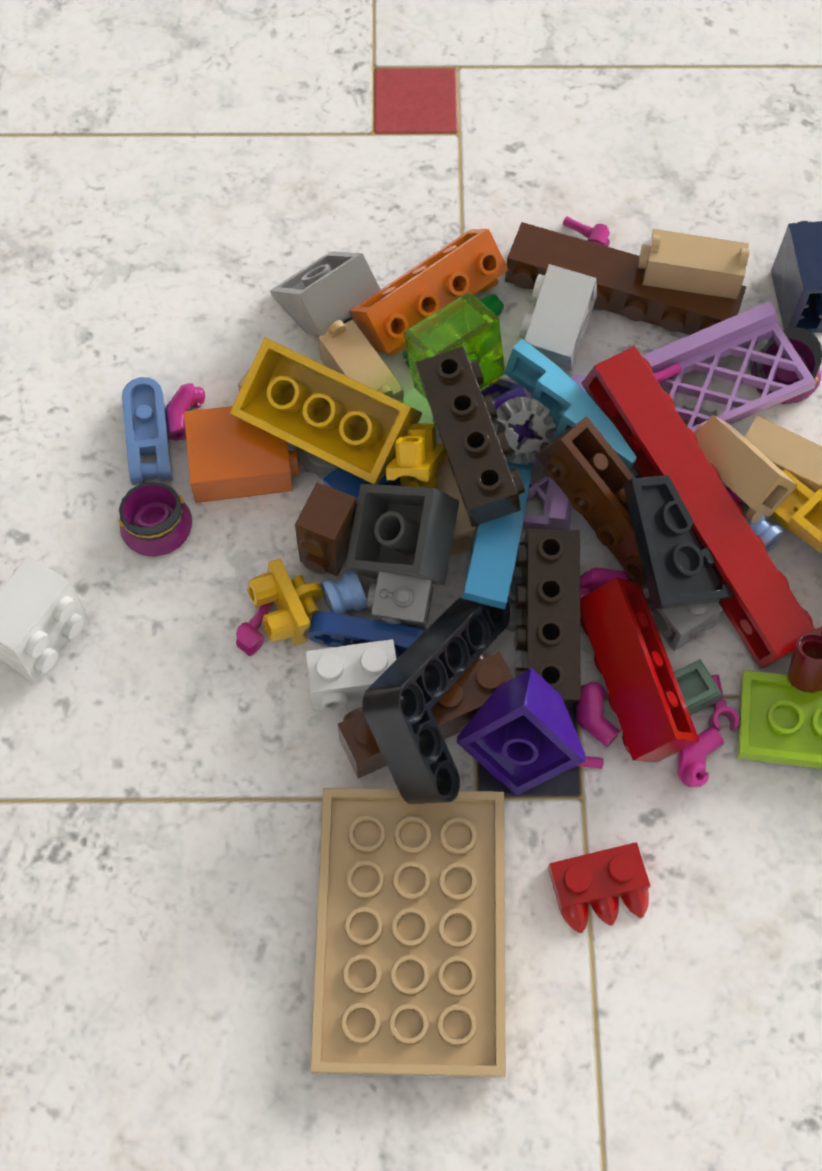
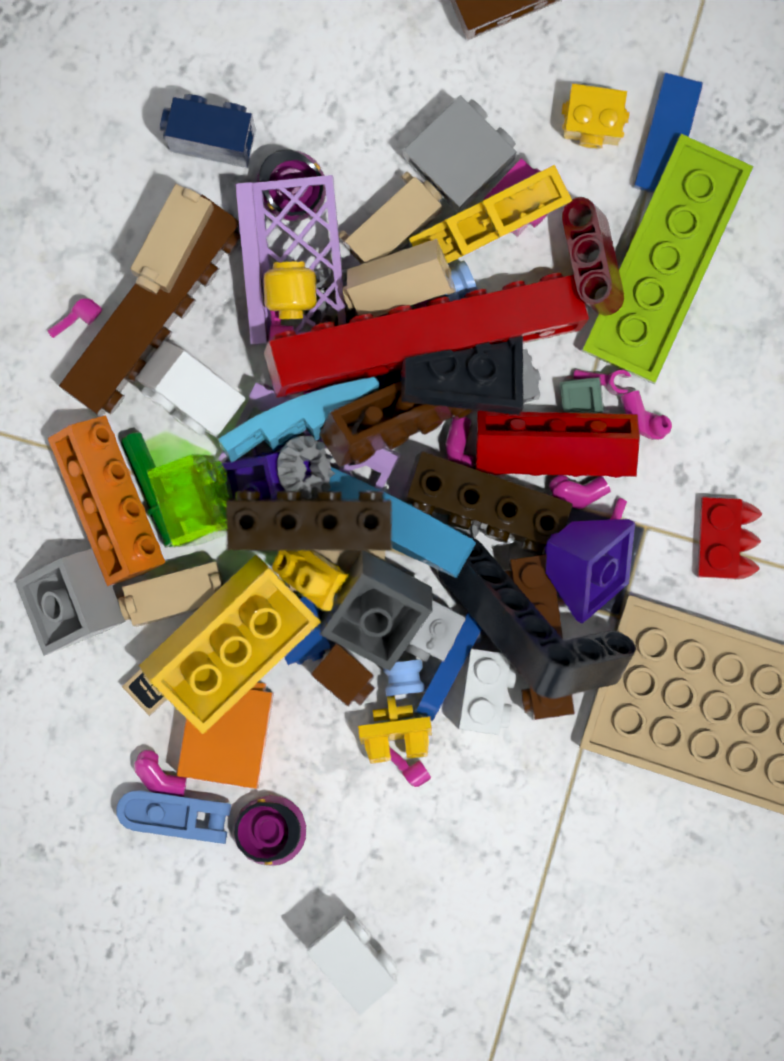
camera: 70 degrees left, 20 degrees up
(690, 372) = (290, 289): none -> yellow head

